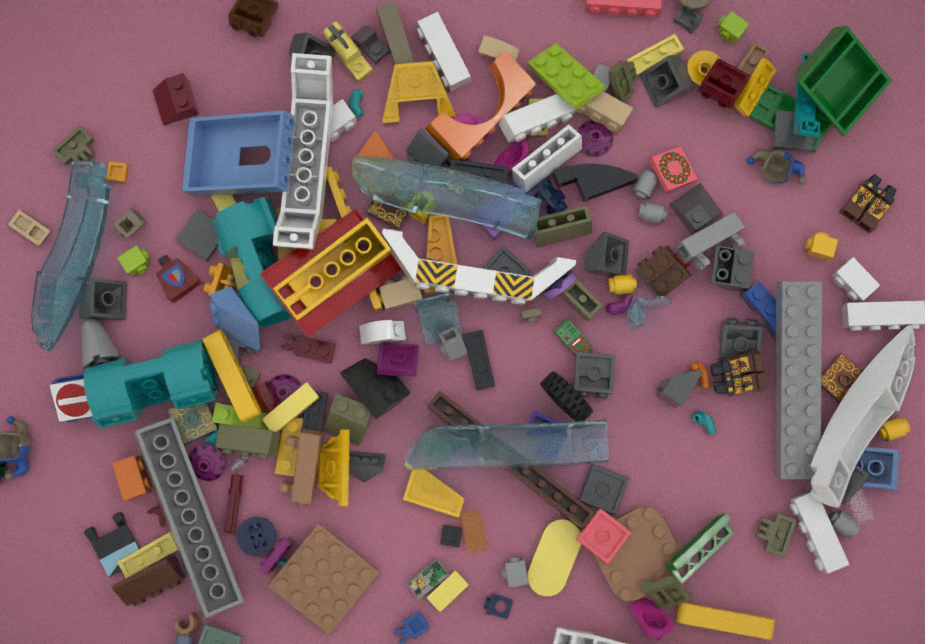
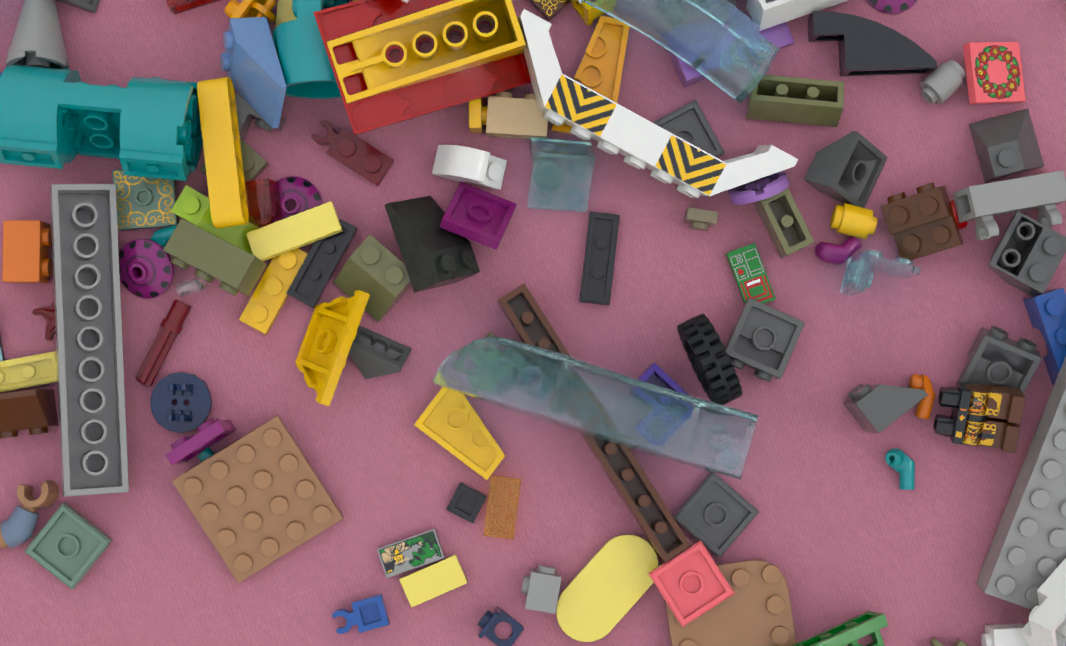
camera: 15 degrees right, 5 degrees up
(306, 466) = (287, 327): medium nougat brick -> none
(452, 344) = (567, 220): light grey brick -> none
(552, 196) = (797, 51): dark blue plate -> none
(652, 212) = (938, 128): light grey brick -> none

